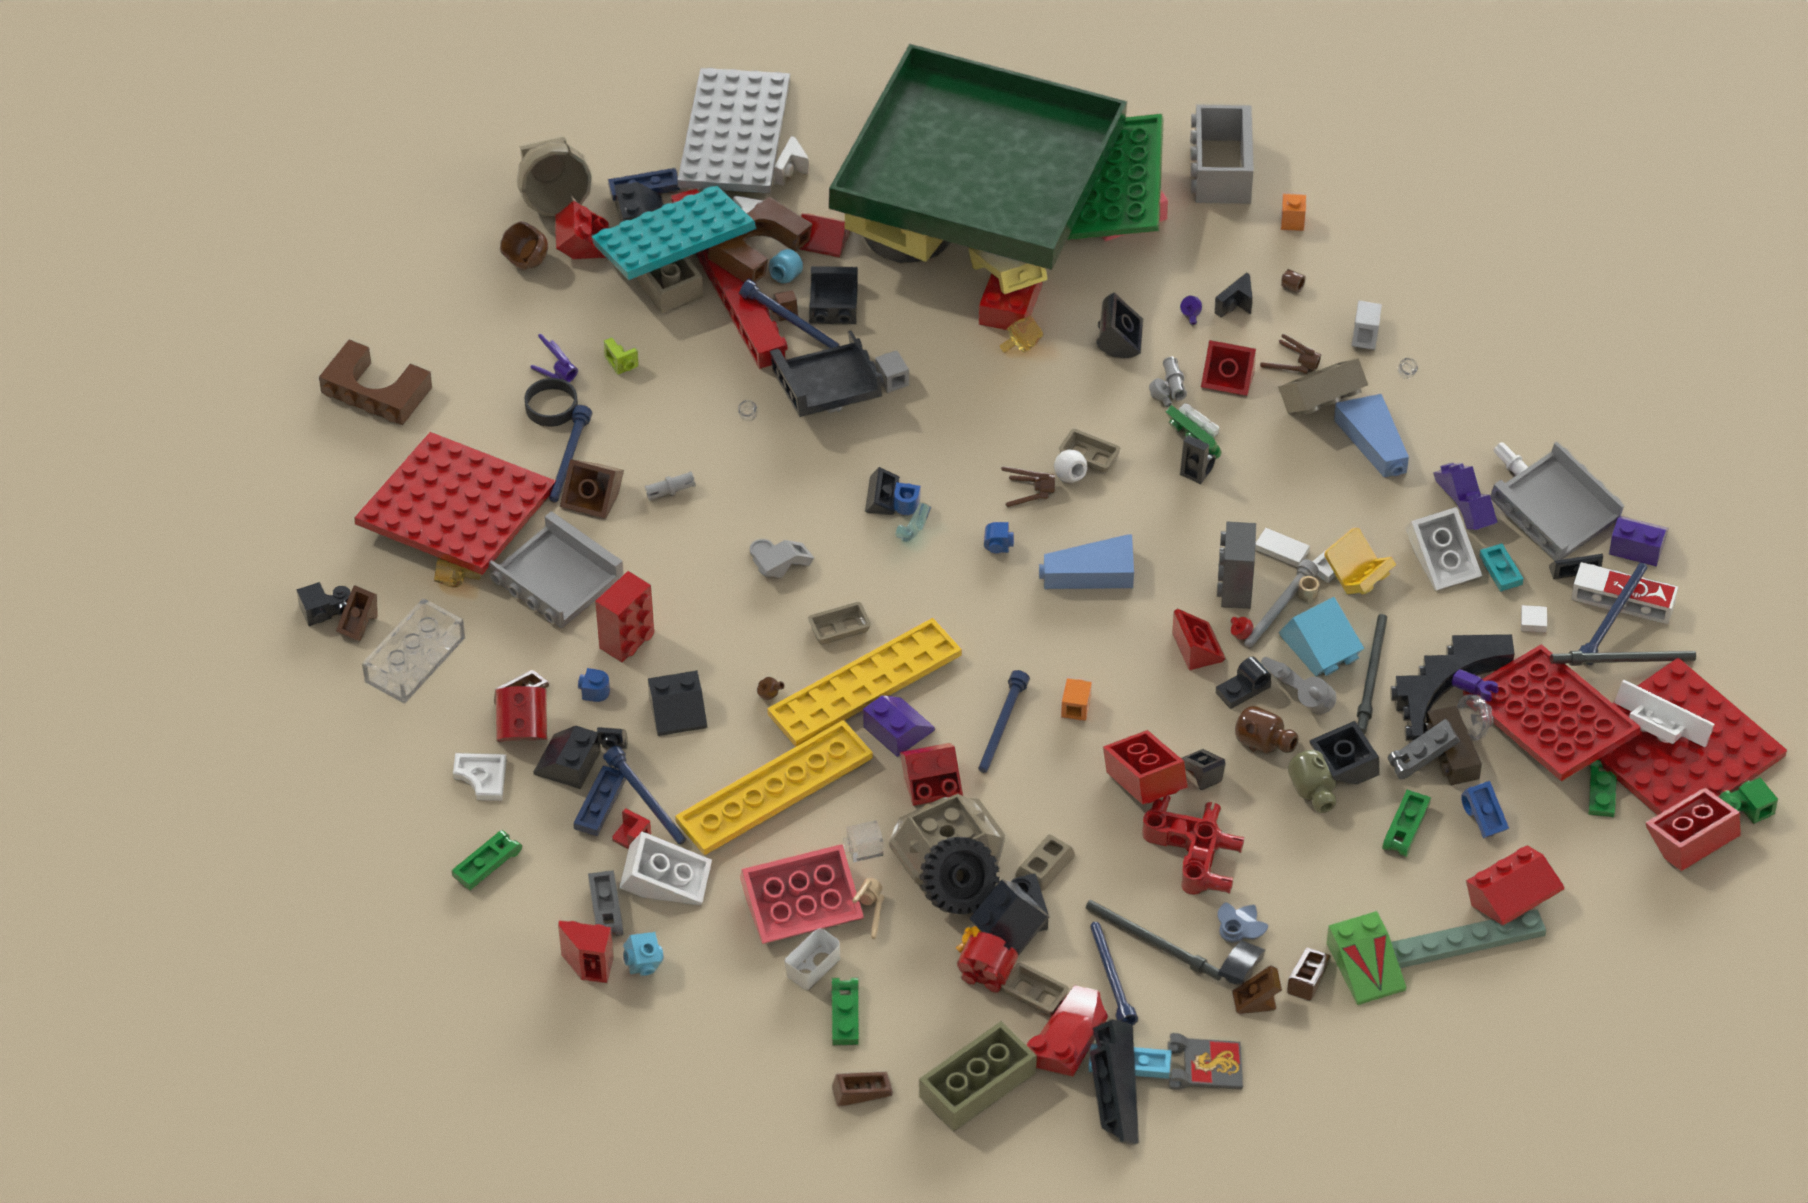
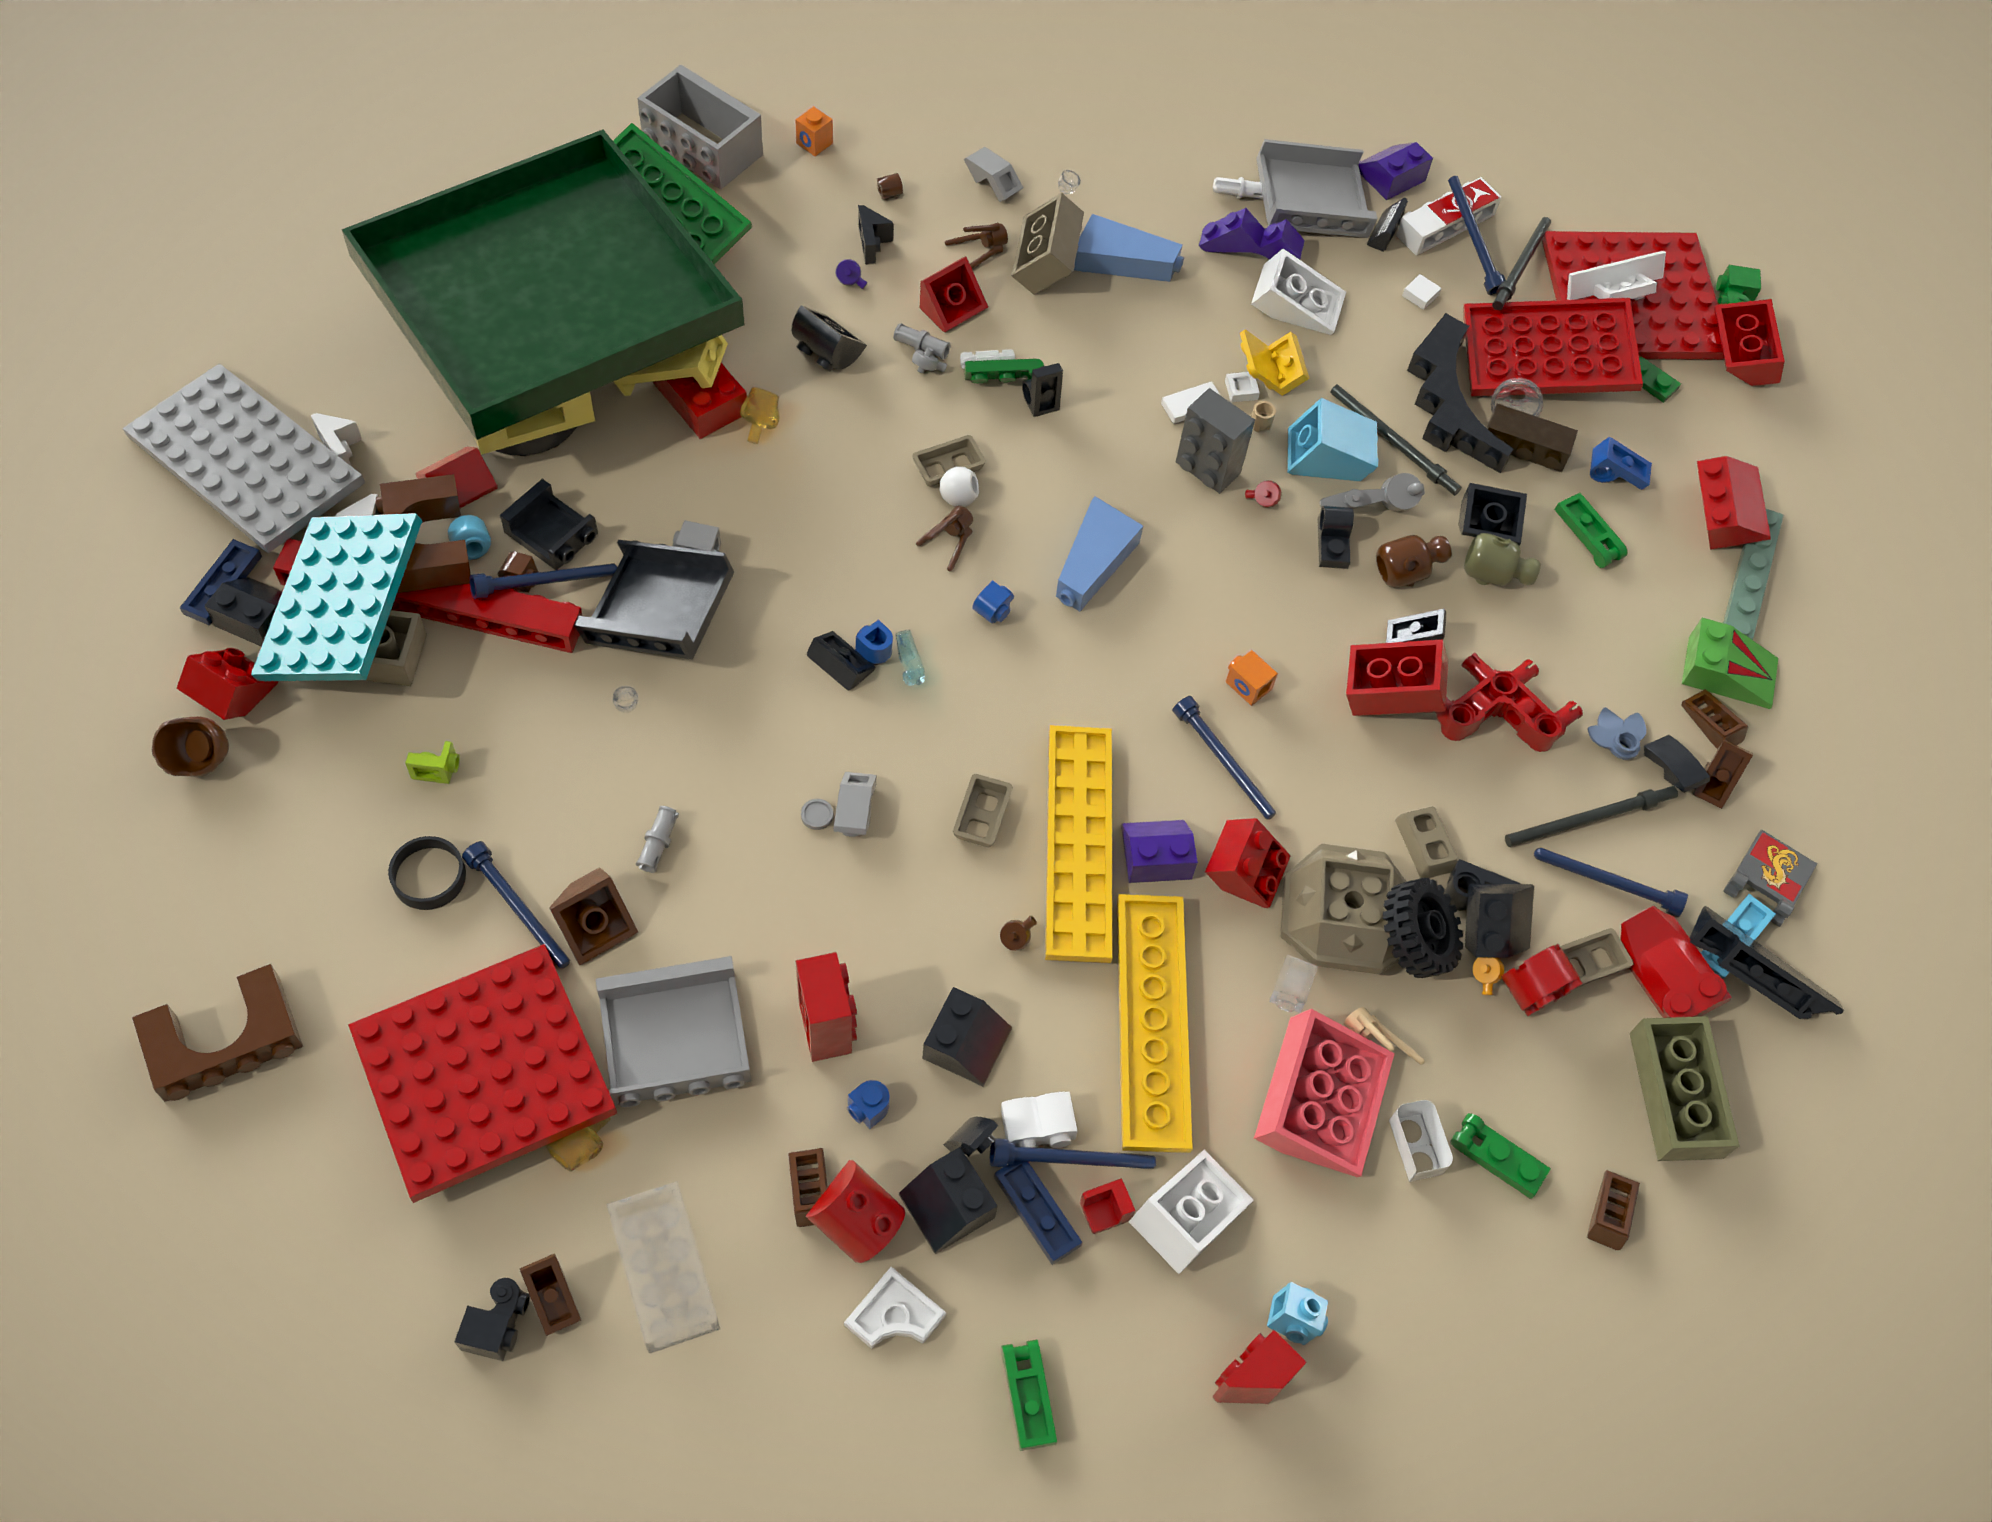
camera: 60 degrees left, 10 degrees up
(552, 175) = (120, 650): dark tan plate -> none
(563, 367) = (397, 828): dark purple plant -> none
(605, 900) = (1188, 1304): dark grey plate -> none
(656, 768) = (1040, 1120): none -> white brick
(1196, 640) = (1253, 541): red slope -> none
(1306, 568) = (1243, 402): light grey piece -> none
(1423, 749) = (1527, 456): dark grey plate -> none
(1474, 684) = (1482, 375): dark purple bar -> none
(1501, 567) = (1350, 273): teal plate -> none

